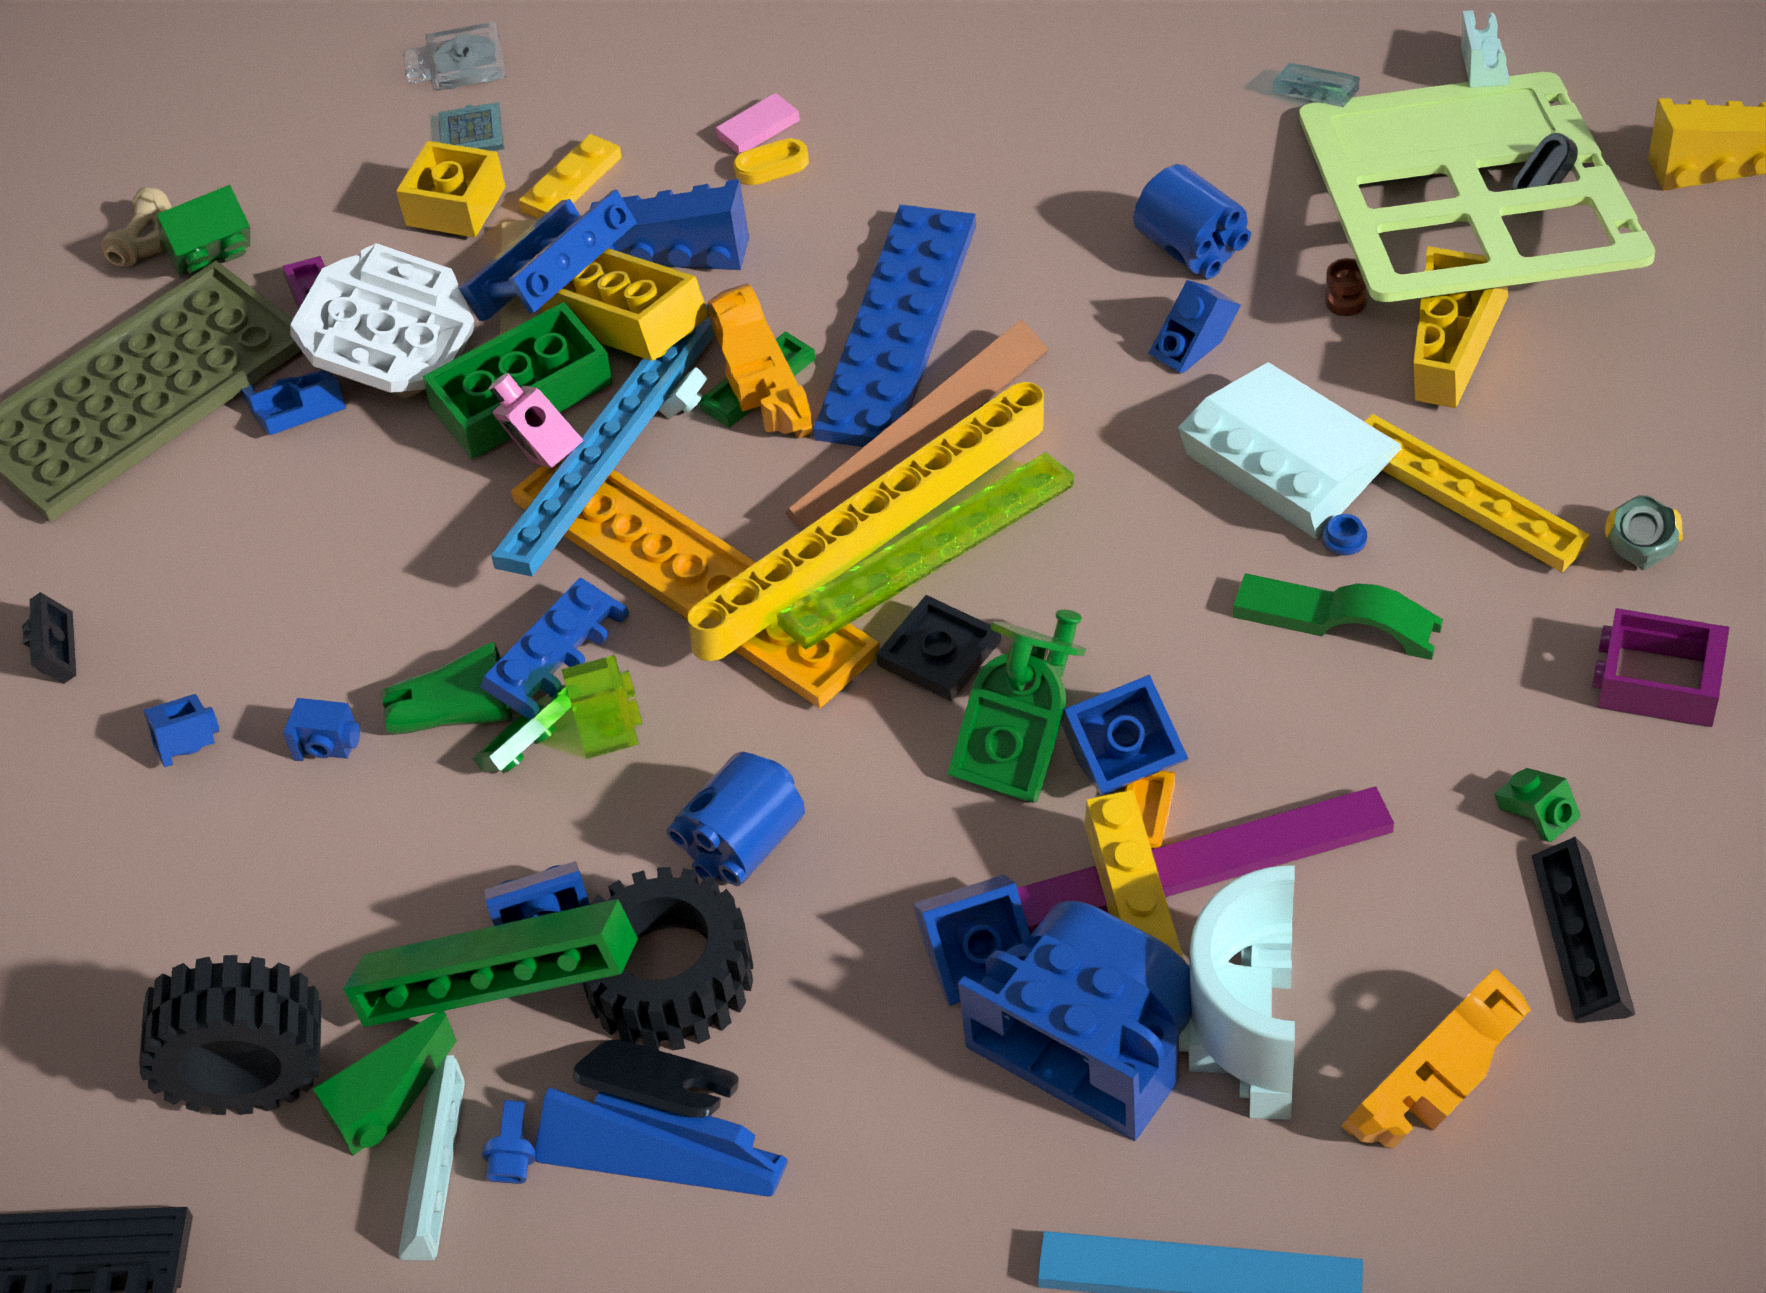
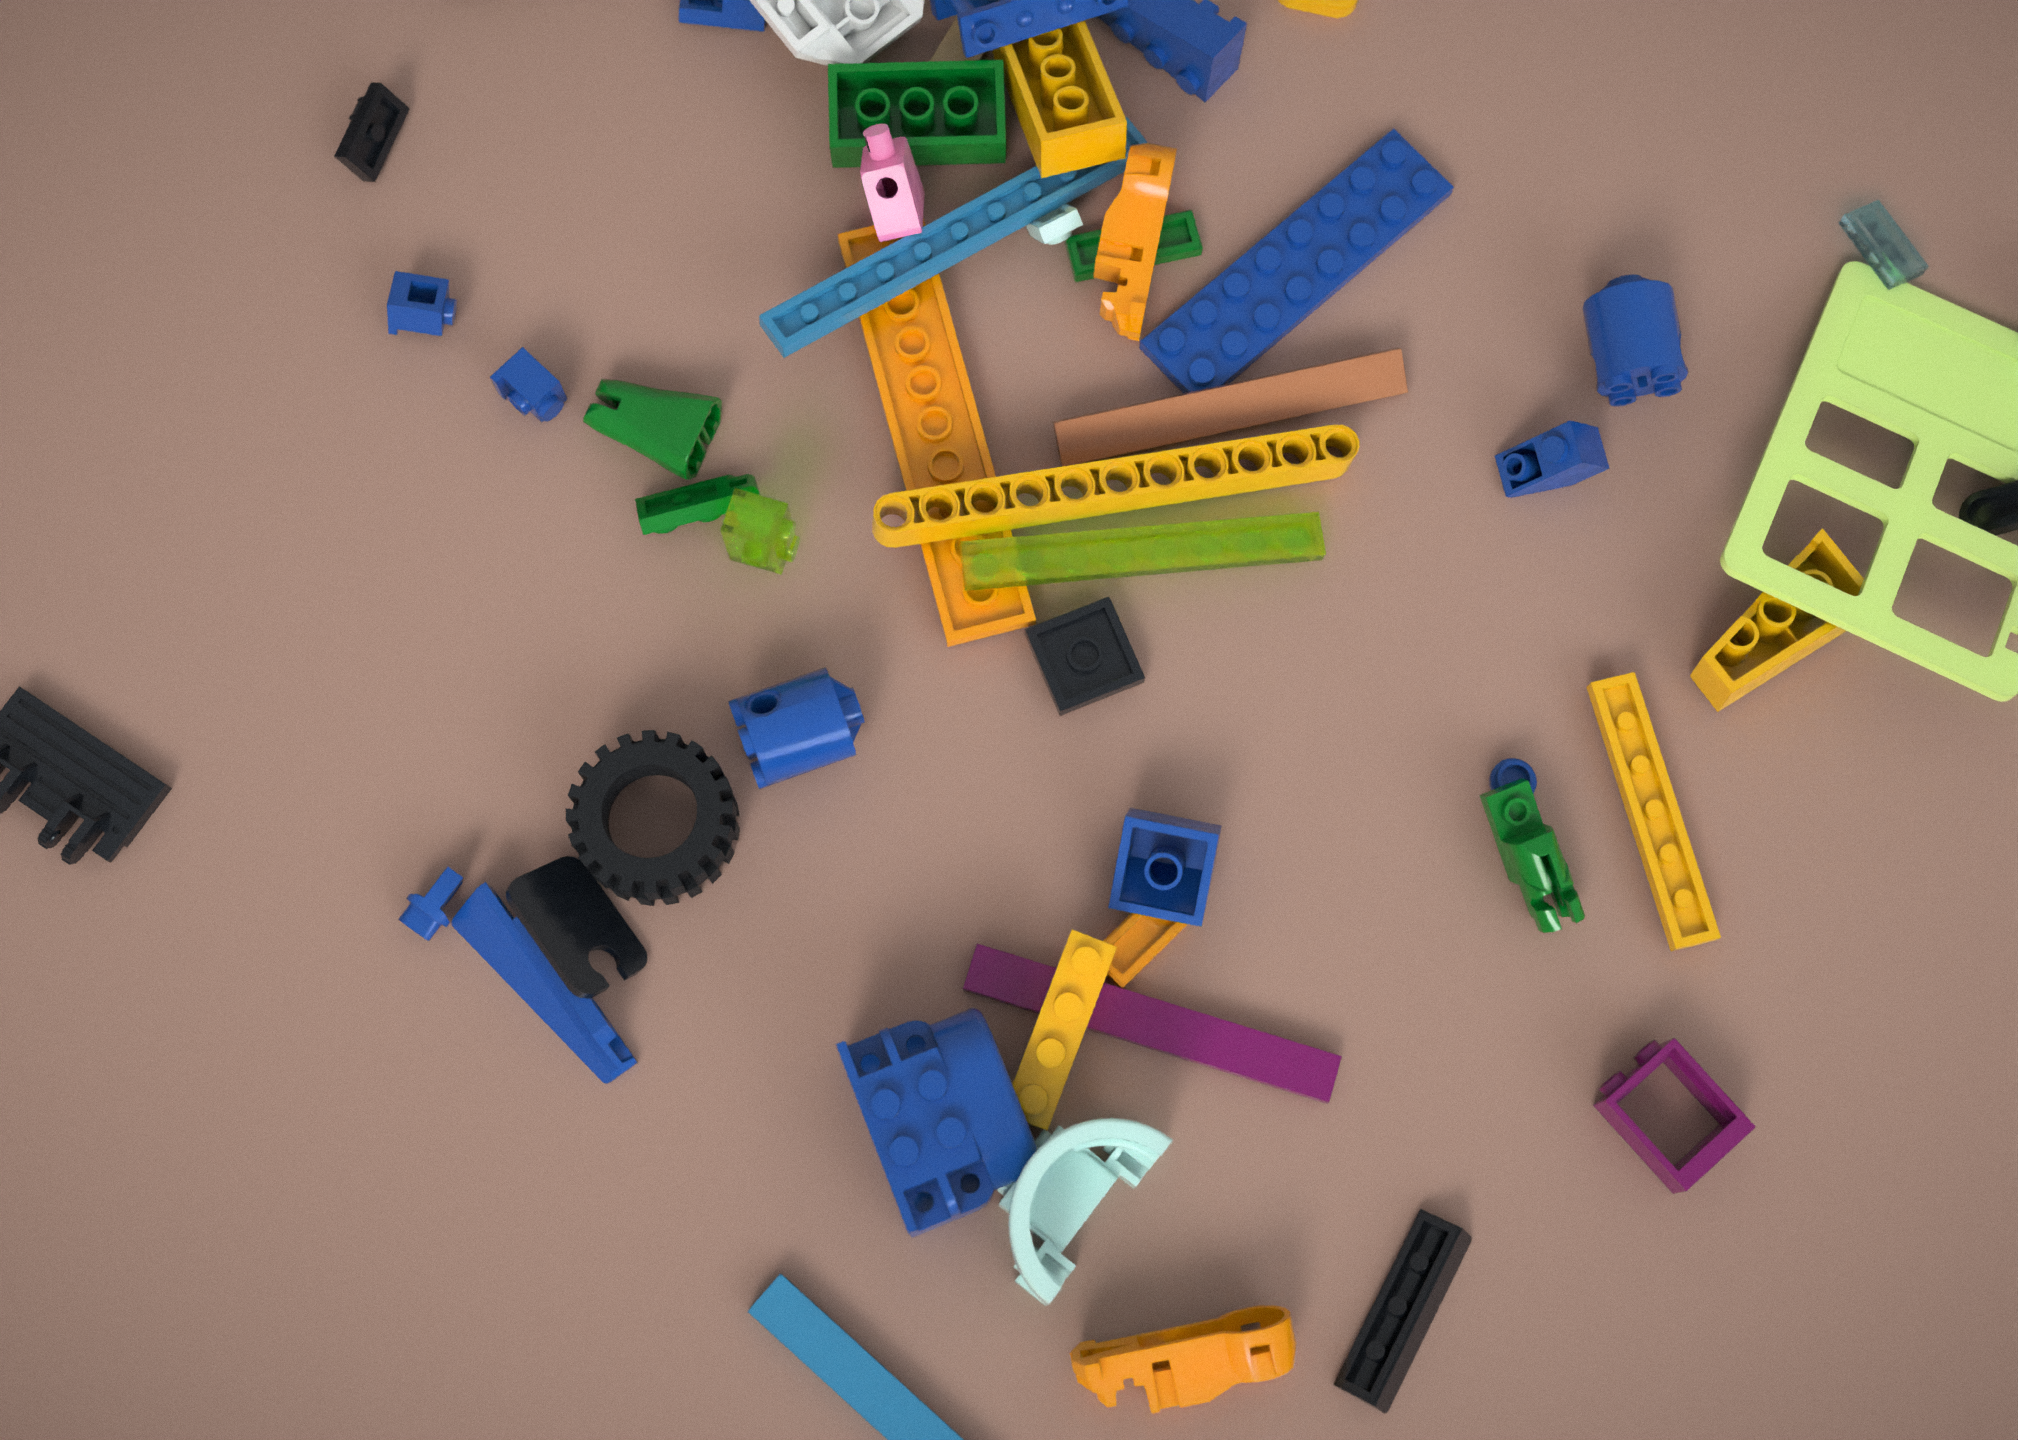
camera: 25 degrees right, 25 degrees up
(230, 1035) = (263, 671): black tyre -> none
(381, 1087) = (366, 781): green slope -> none
(432, 1163) = (370, 874): light aqua slope -> none
(491, 963) = (504, 744): green brick -> none
(537, 894) = (588, 694): blue slope -> none
(550, 644) = (762, 433): blue hinge -> none
(968, 926) = (912, 968): blue slope -> none
(1013, 731) = (1071, 792): green plate -> none
(1286, 446) = (1535, 655): light aqua slope -> none
(1317, 610) = (1445, 855): green piece -> none
(1345, 288) = (1726, 501): copper wheel -> none
(1403, 565) = (1531, 854): none -> green plate
(1541, 798) = (1464, 1167): green bracket -> none
(1643, 531) = (1770, 968): sand green hair -> none

